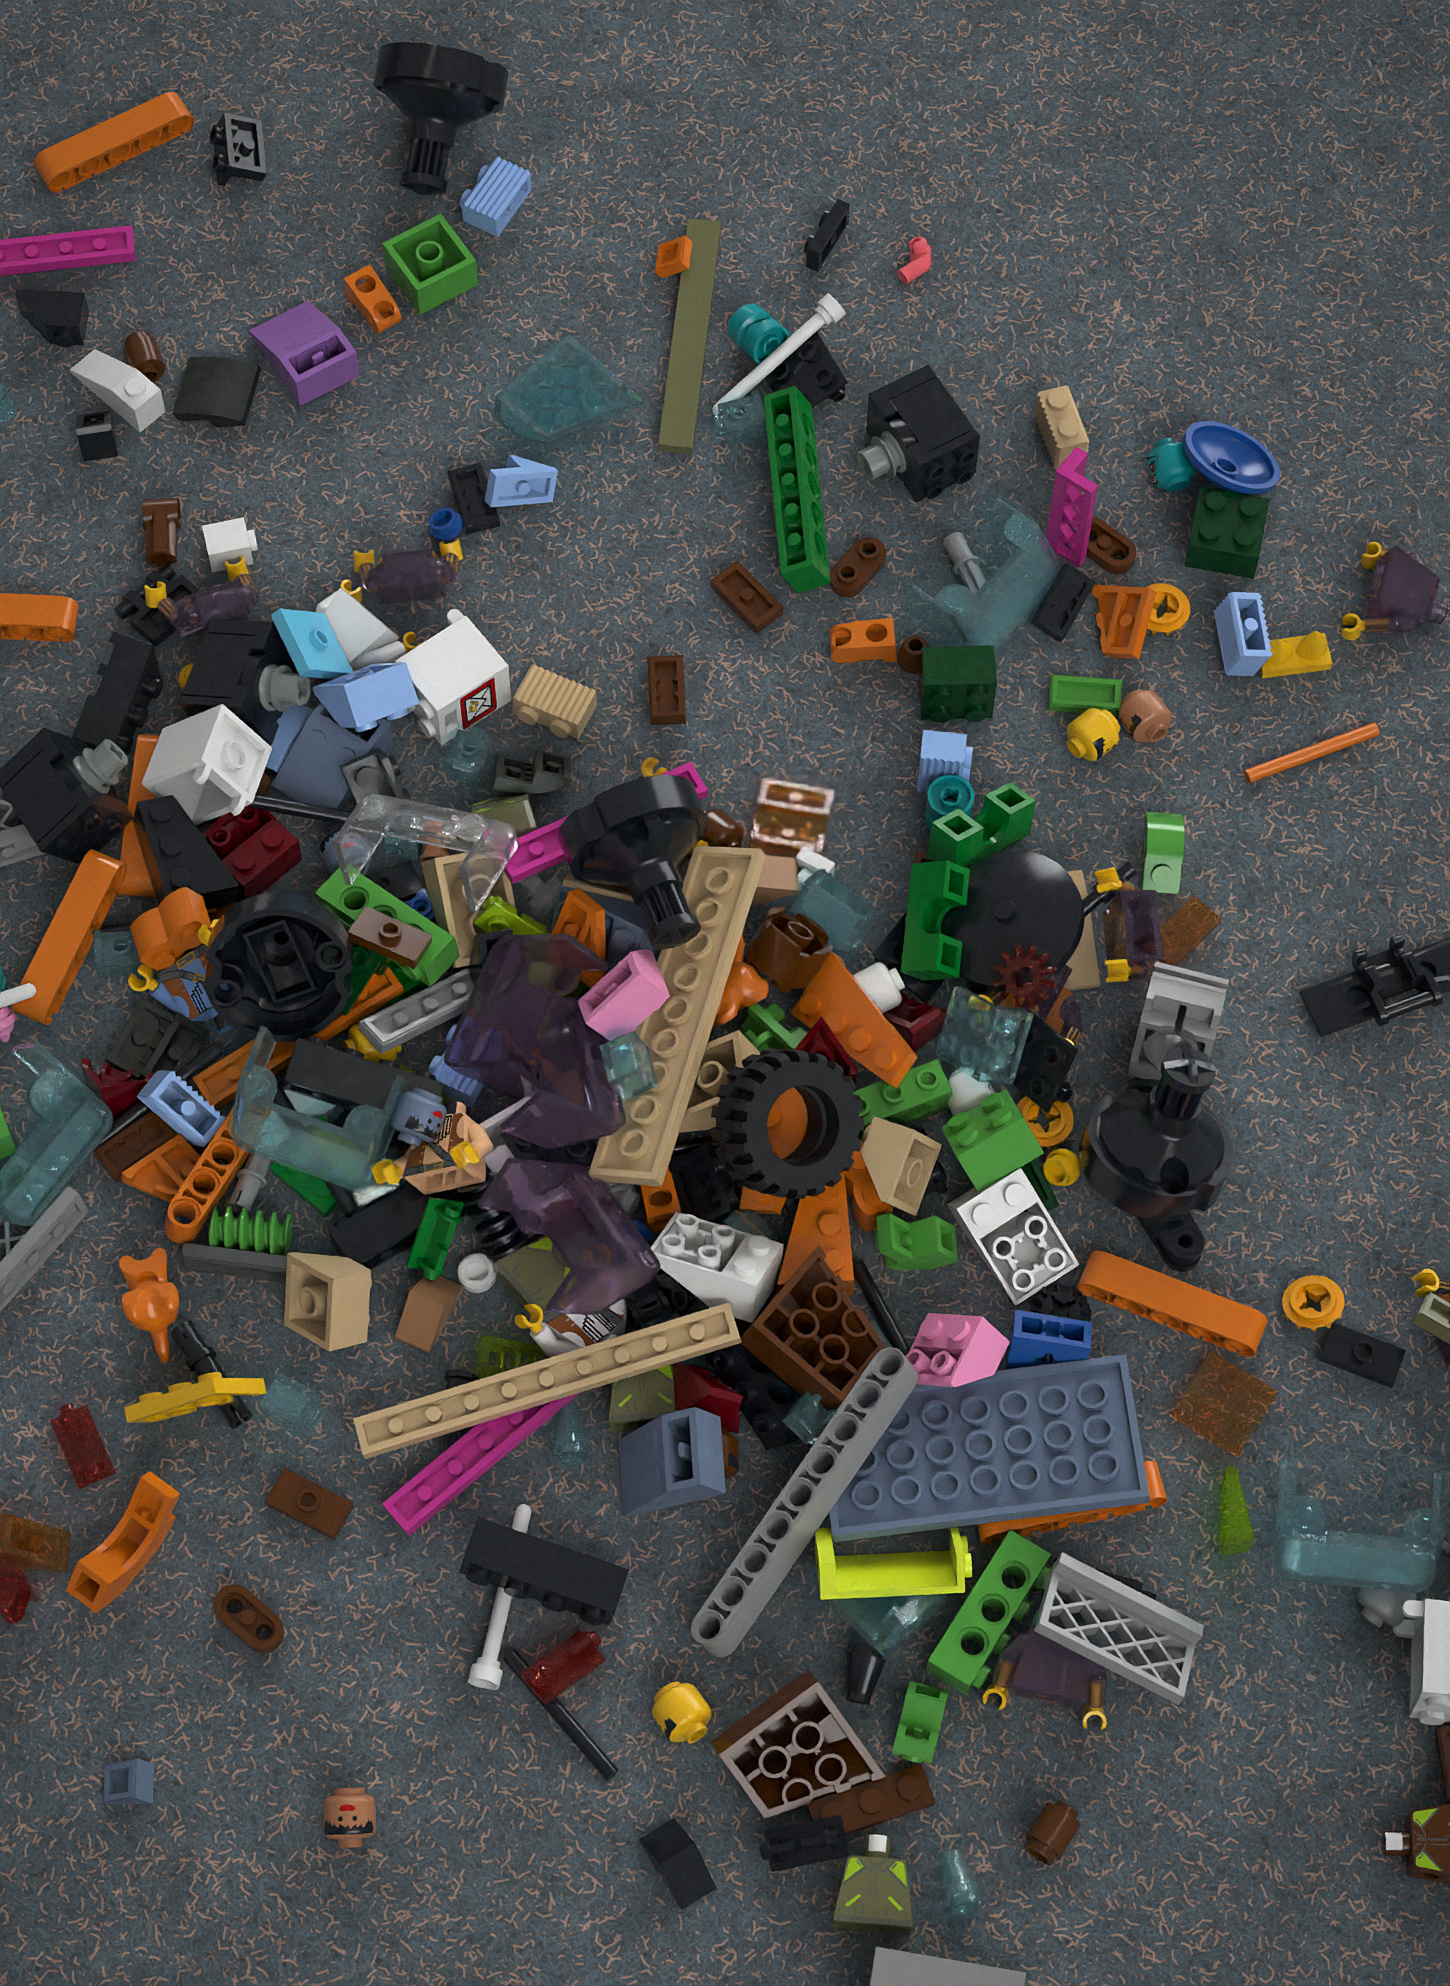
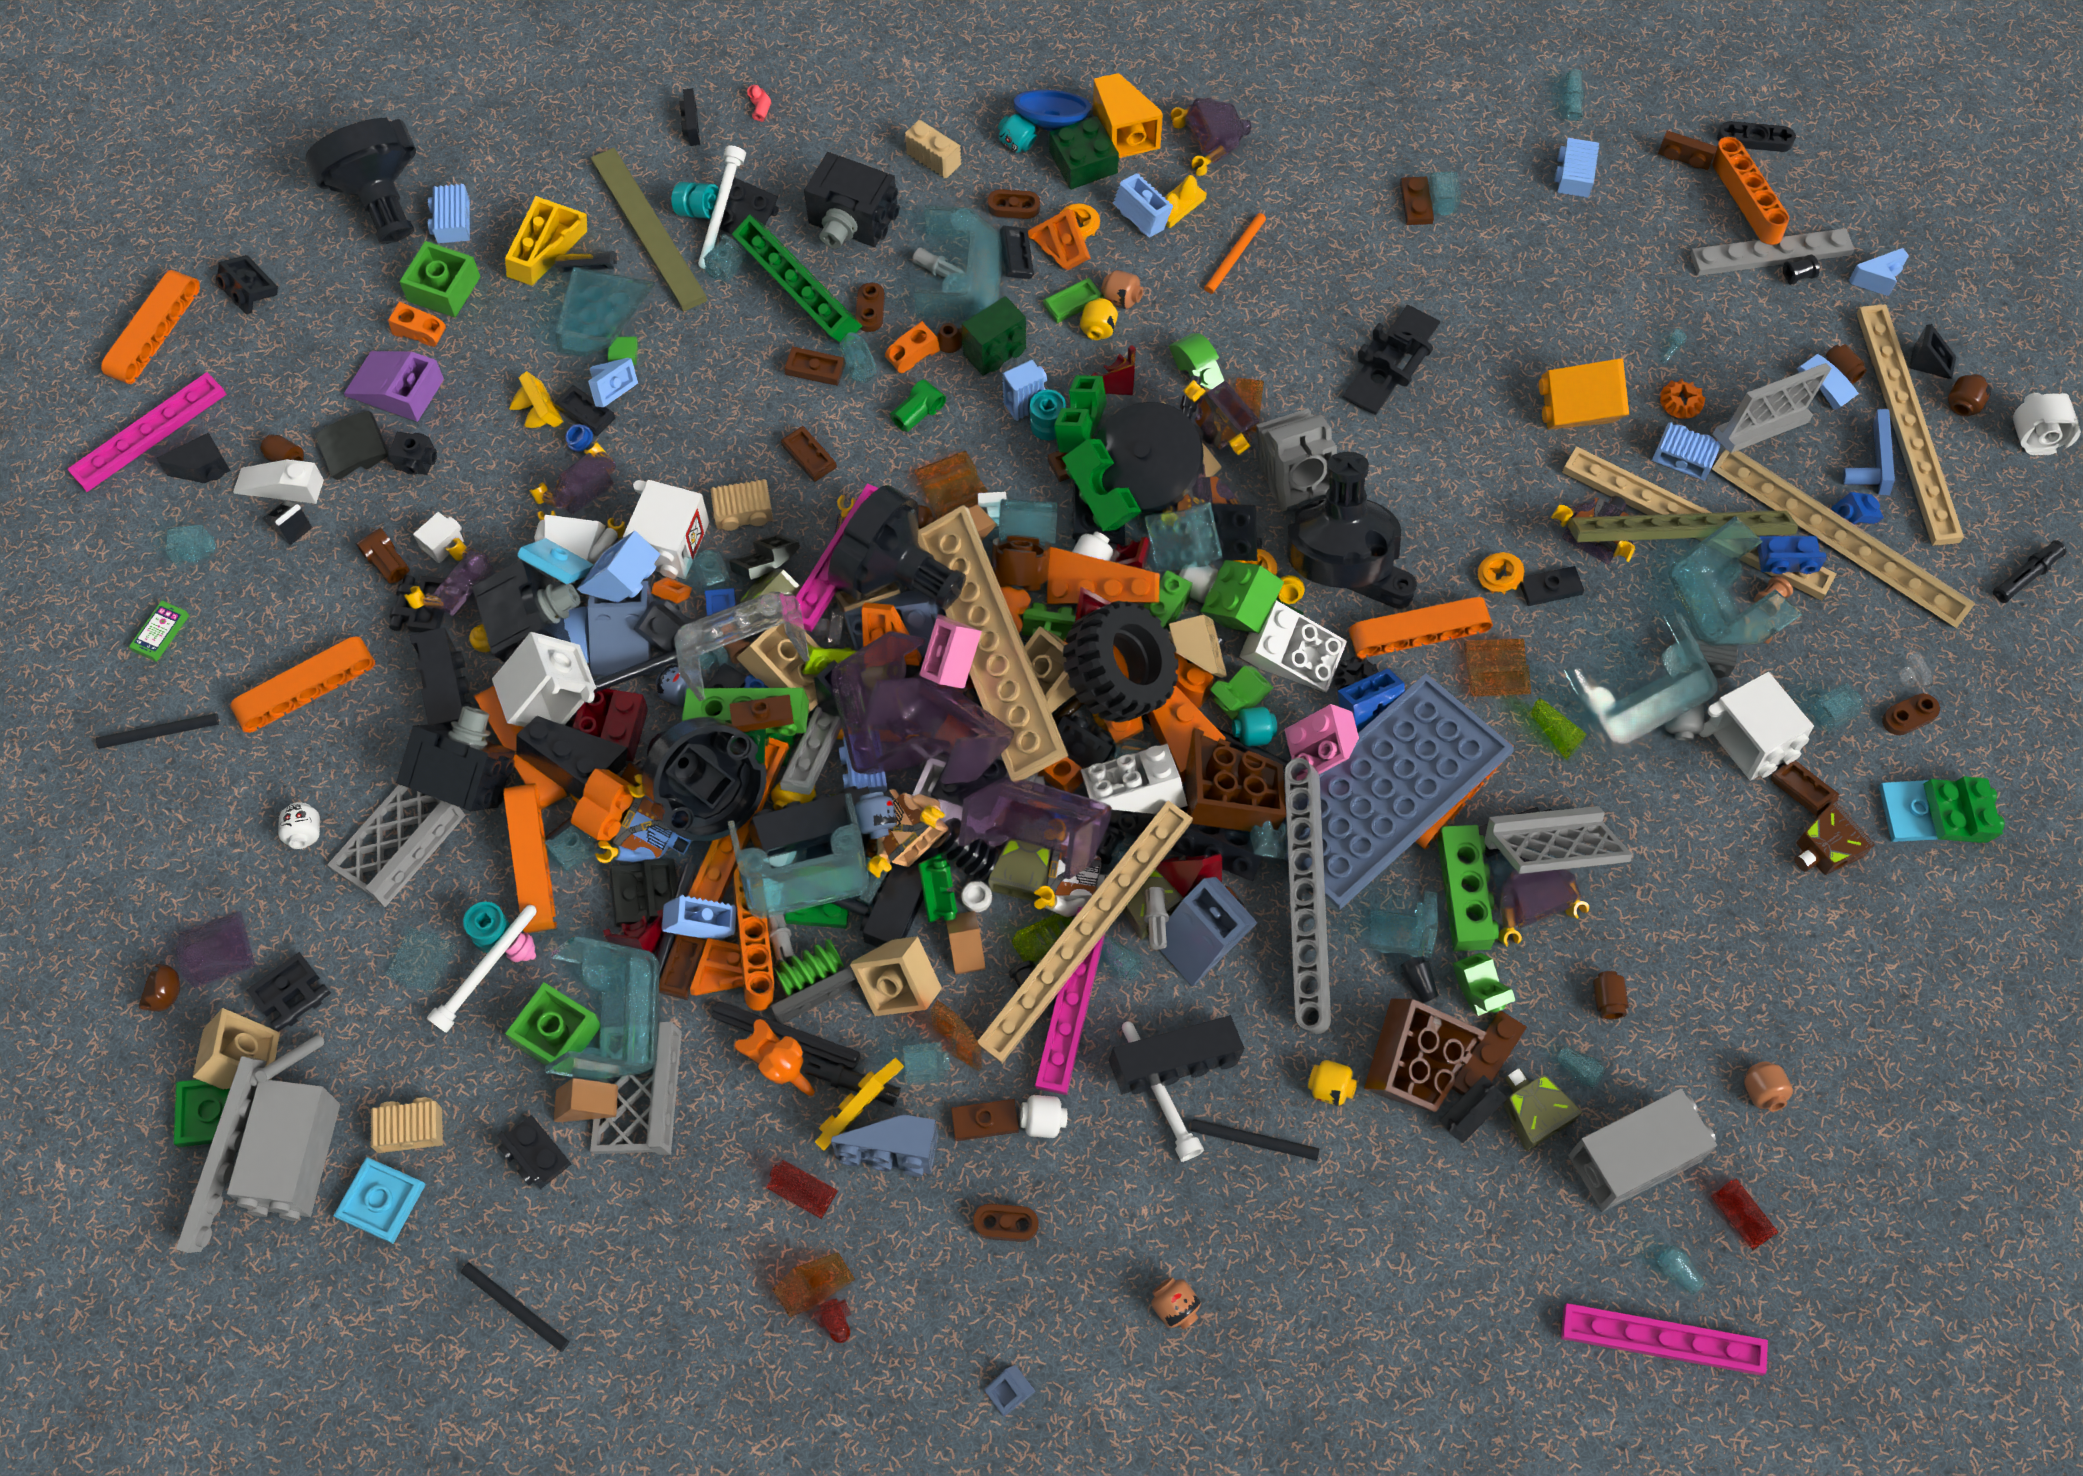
camera: 35 degrees left, 0 degrees up
(133, 1542) = (887, 1231): orange arch -> none
(188, 1290) = (808, 1042): none -> black axle
(195, 1460) = (897, 1143): none -> sand blue slope
(266, 438) = (412, 453): none -> black brick
(339, 1400) = (963, 1042): none -> clear orange slope
(364, 1539) = (1043, 1116): none -> white head
(414, 749) = (671, 590): none -> orange plate
(436, 456) = (534, 393): none -> yellow tile
(453, 793) = (719, 600): none -> blue bracket
(563, 456) = (623, 348): none -> bright green tile
(564, 1665) = (1234, 1105): clear red hinge -> none
(566, 283) = (544, 235): none -> yellow wedge
(592, 333) = (587, 261): none -> black slope
(628, 1065) = (987, 692): clear light blue brick -> none
(628, 1417) = (1156, 917): none -> light grey axle
(673, 257) = (600, 186): orange tile -> none
(678, 1863) = (1403, 1178): black slope -> none
(798, 622) = (858, 357): none -> clear light blue plate
(830, 707) = (922, 401): none -> green piece
(891, 1572) = (1393, 902): neon yellow panel -> none
(901, 1289) = (1254, 726): none -> teal head
(1029, 988) = (1196, 488): clear red gear -> none
(1065, 505) = (983, 190): dark pink fence -> none
(1066, 811) = (1120, 374): none -> dark red slope
(1301, 521) = (1126, 115): none -> light orange slope

